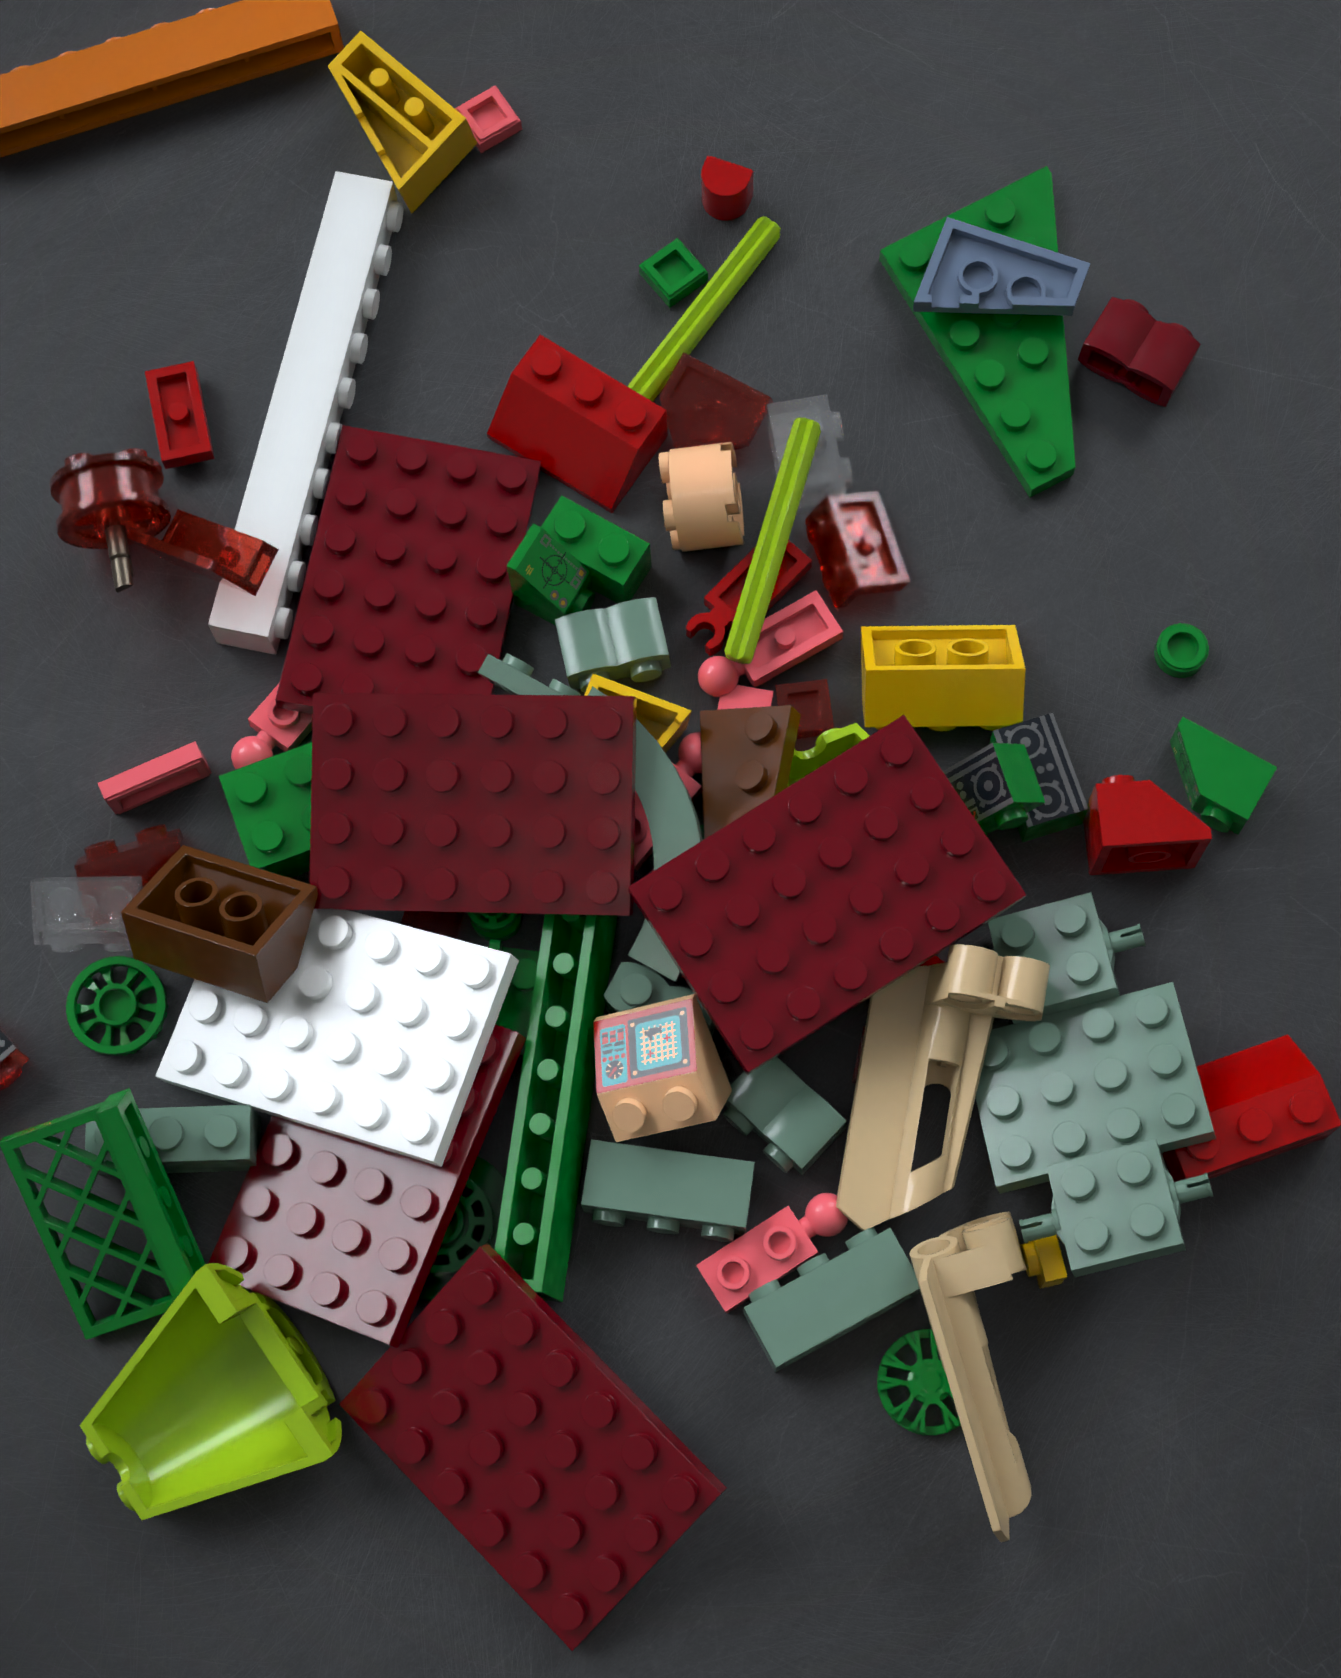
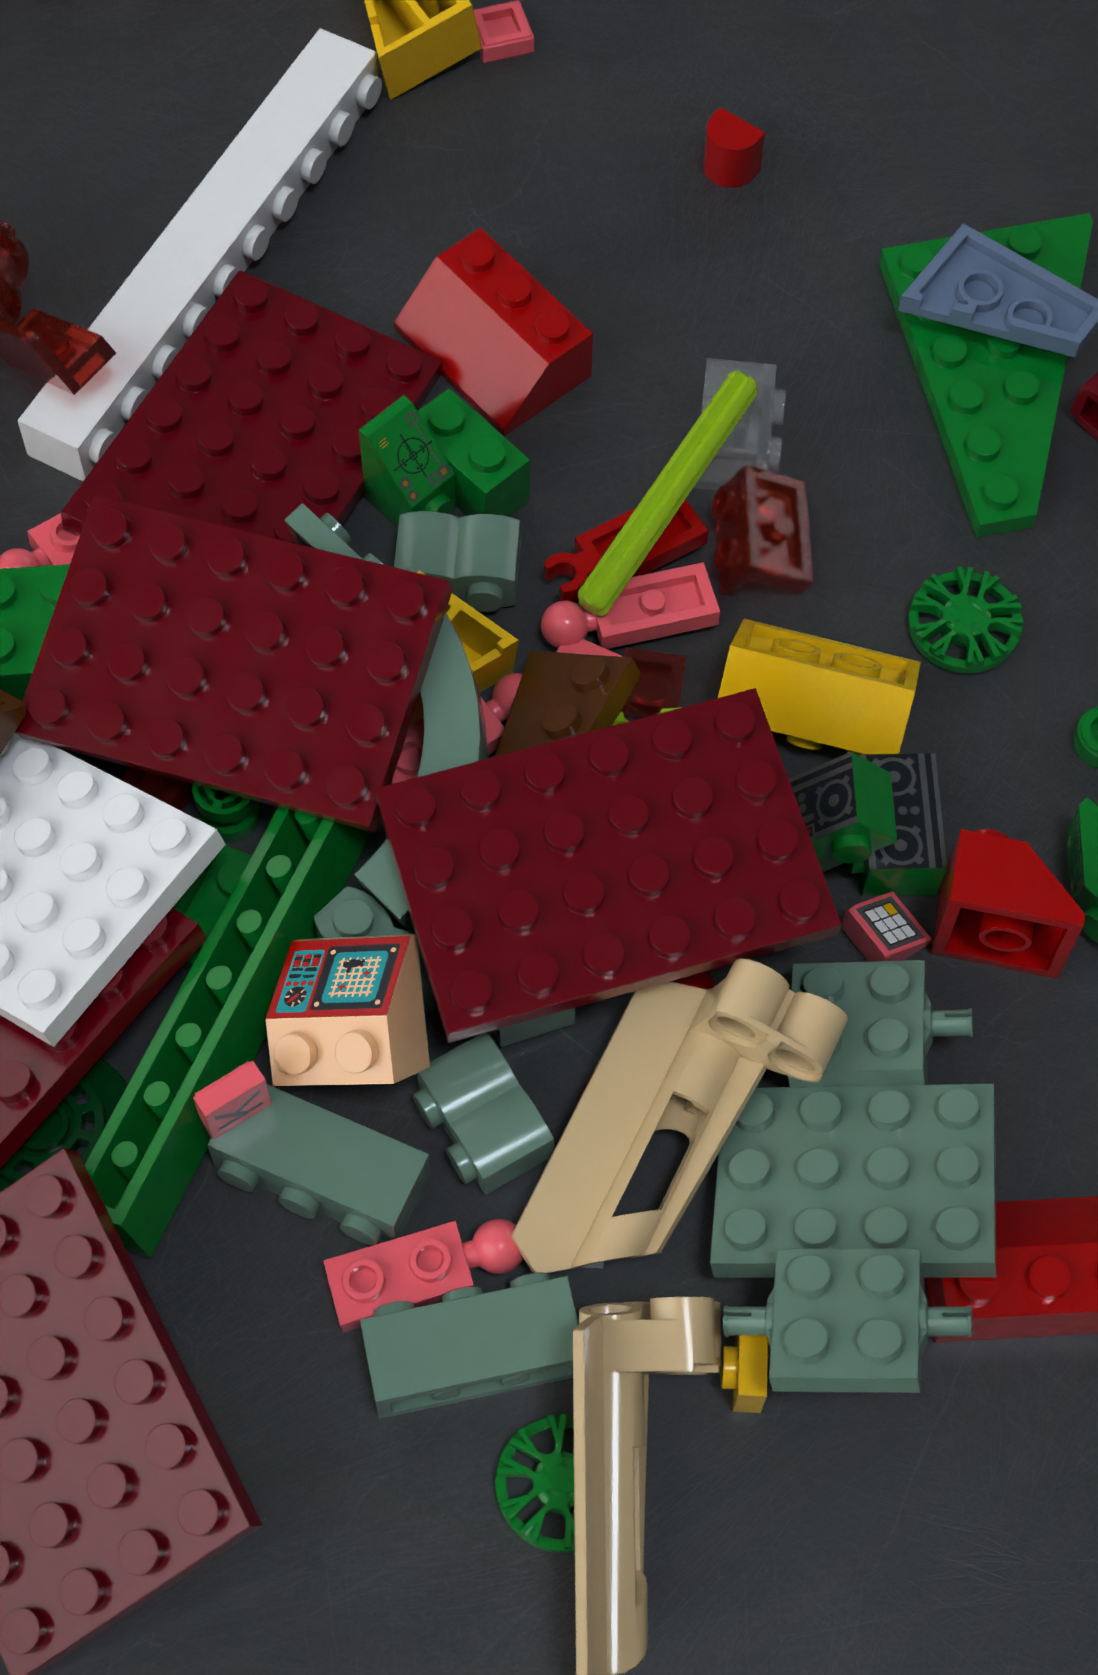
camera: 10 degrees right, 10 degrees down
(179, 415) = (71, 221): red plate -> none
(592, 1166) = (232, 1099): none -> coral tile
(673, 273) = (649, 219): green tile -> none
(703, 497) = (605, 432): light nougat brick -> none
(706, 307) = (675, 258): lime axle -> none
(710, 406) = (643, 357): clear red plate -> none
(1041, 578) = (965, 620): none -> green wheel
(1050, 868) = (884, 929): none -> slope

